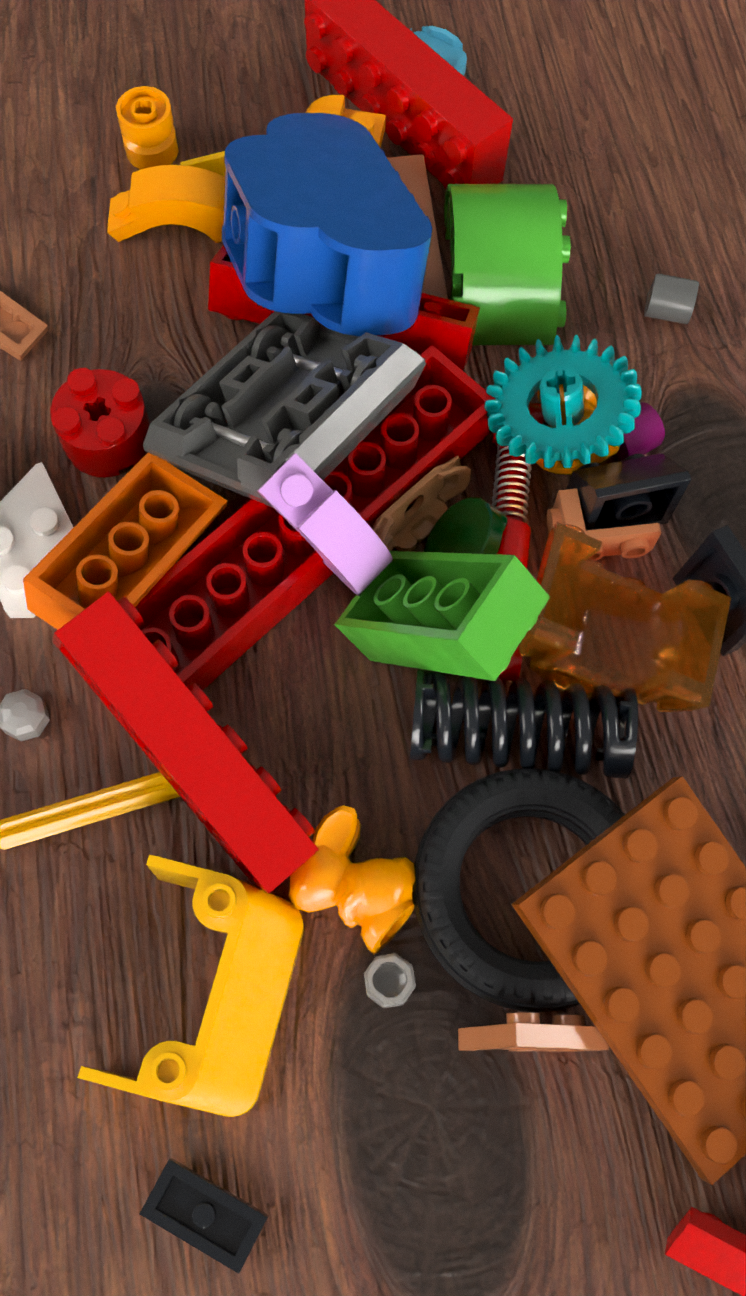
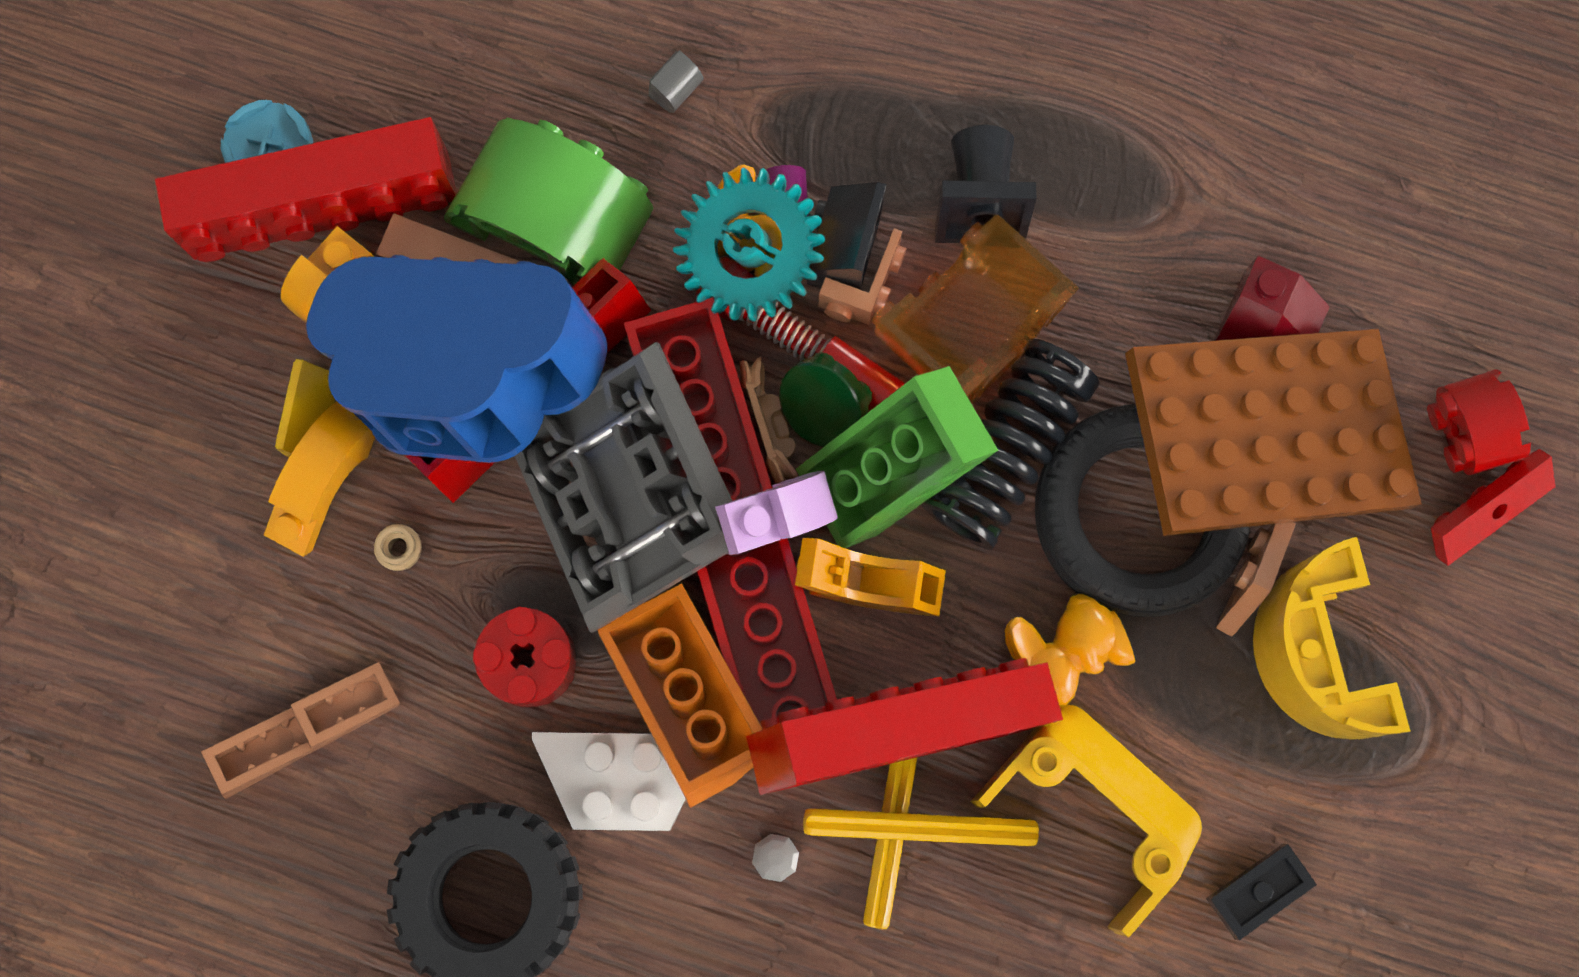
camera: 60 degrees left, 10 degrees up
(107, 828) = (920, 827): none -> yellow axle
(147, 127) = (207, 459): light orange wheel -> none
(150, 283) = (385, 541): none -> tan plate
(320, 659) = (869, 579): none -> light orange arch
(389, 980) = (1156, 661): light grey tile -> none
(470, 1116) = (1300, 655): none -> yellow cylinder

